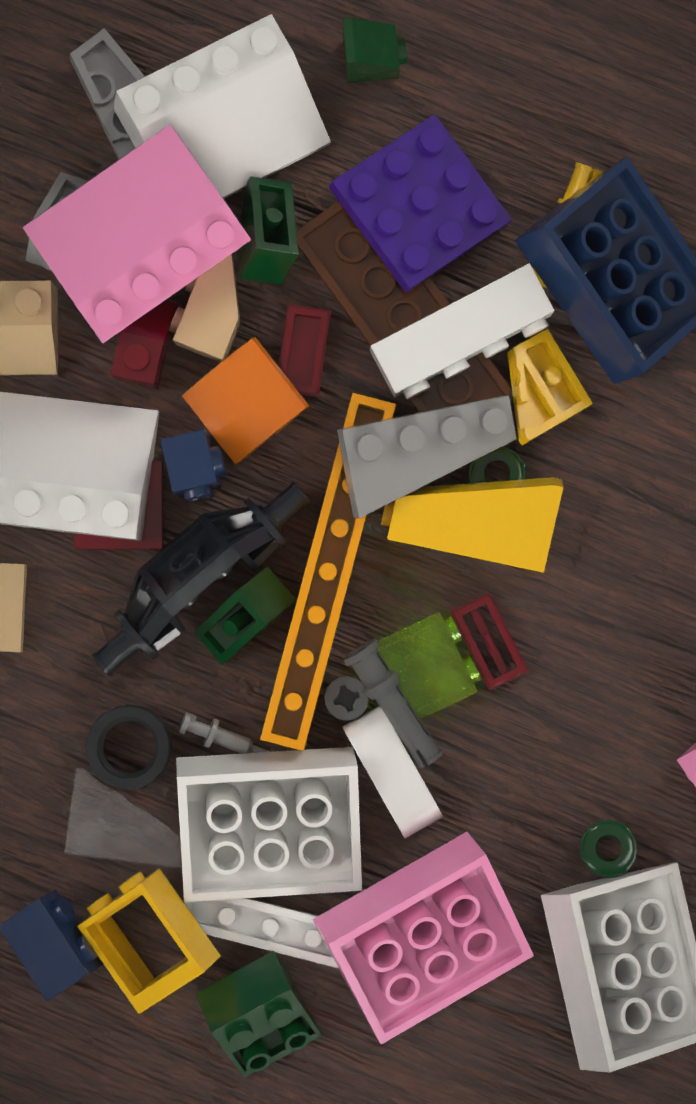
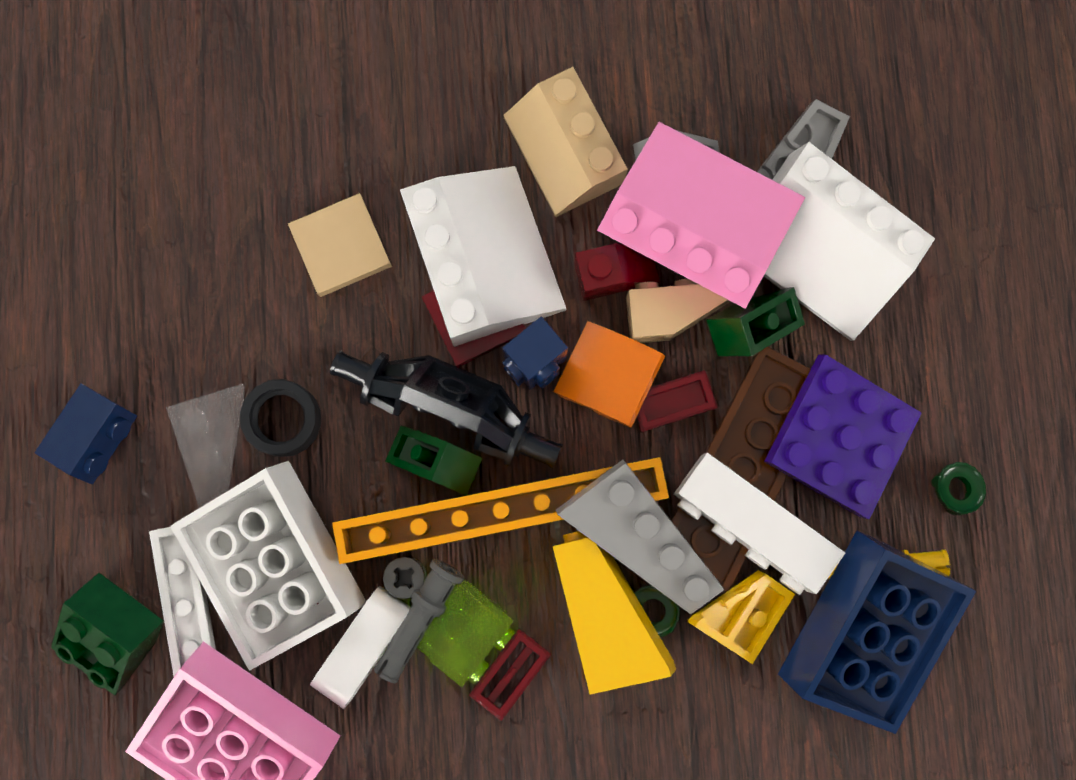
camera: 60 degrees right, 5 degrees down
(121, 957) = (102, 497): yellow window -> none
(219, 736) = (325, 489): light grey piece -> none
(372, 50) = (947, 334): dark green slope -> none
(530, 99) = (973, 483): none -> dark green piece

